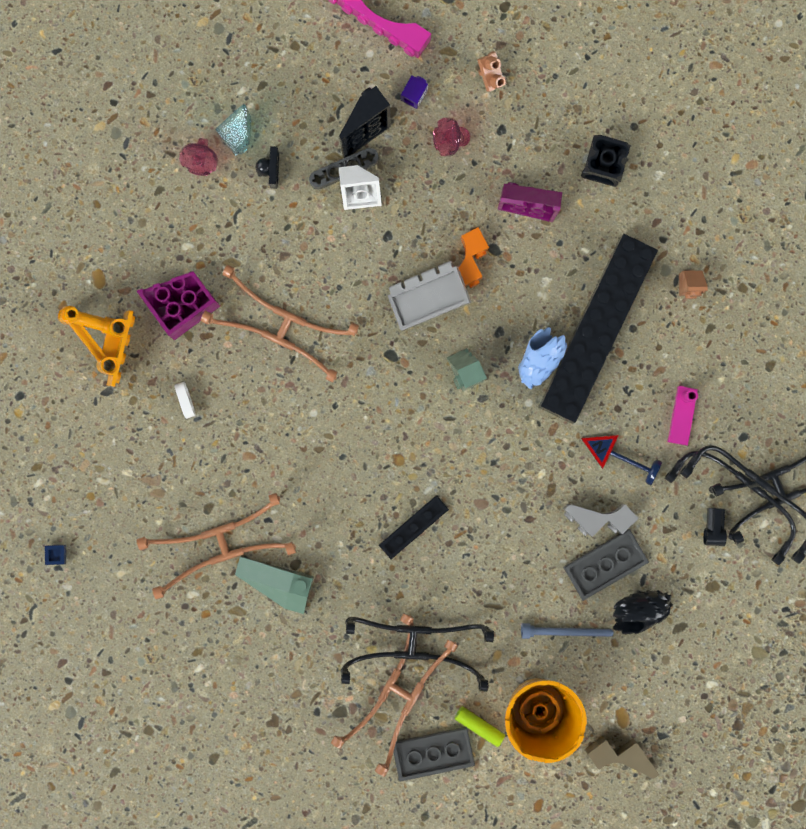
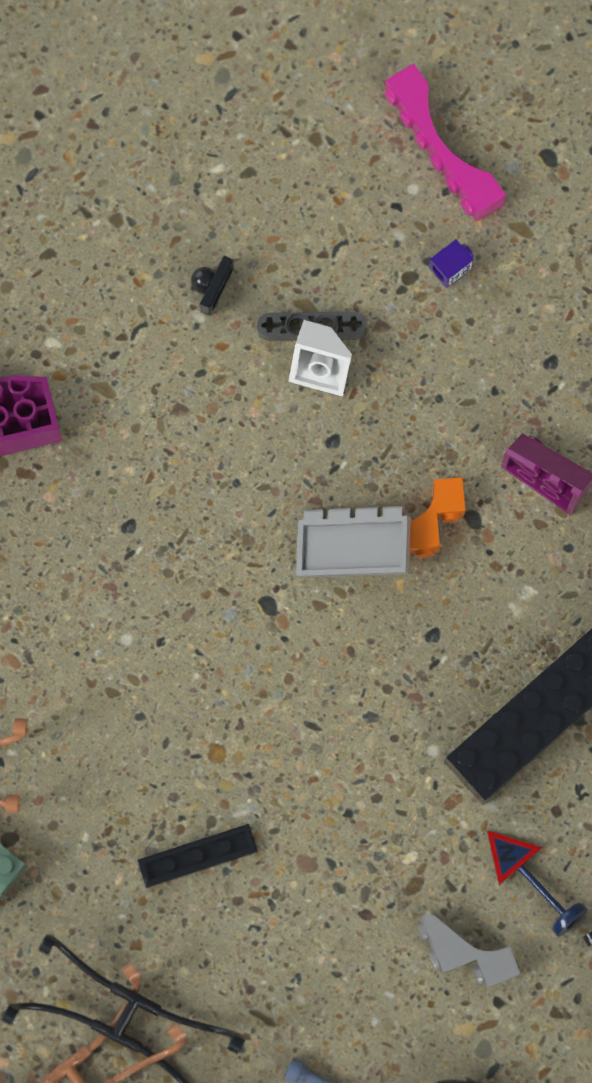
camera: 25 degrees right, 10 degrees down
(199, 158) = (120, 232): clear pink tile -> none
(207, 318) = (150, 494): nougat bar -> none
(236, 130) = (187, 217): clear light blue slope -> none
(365, 122) = (364, 274): black slope -> none
(448, 136) = (471, 340): clear pink tile -> none
(466, 369) = (363, 667): sand green wedge -> none
(491, 71) = (567, 278): nougat hips -> none
(541, 357) = (475, 692): light blue head -> none
(605, 564) = (448, 1025): dark grey tile -> none

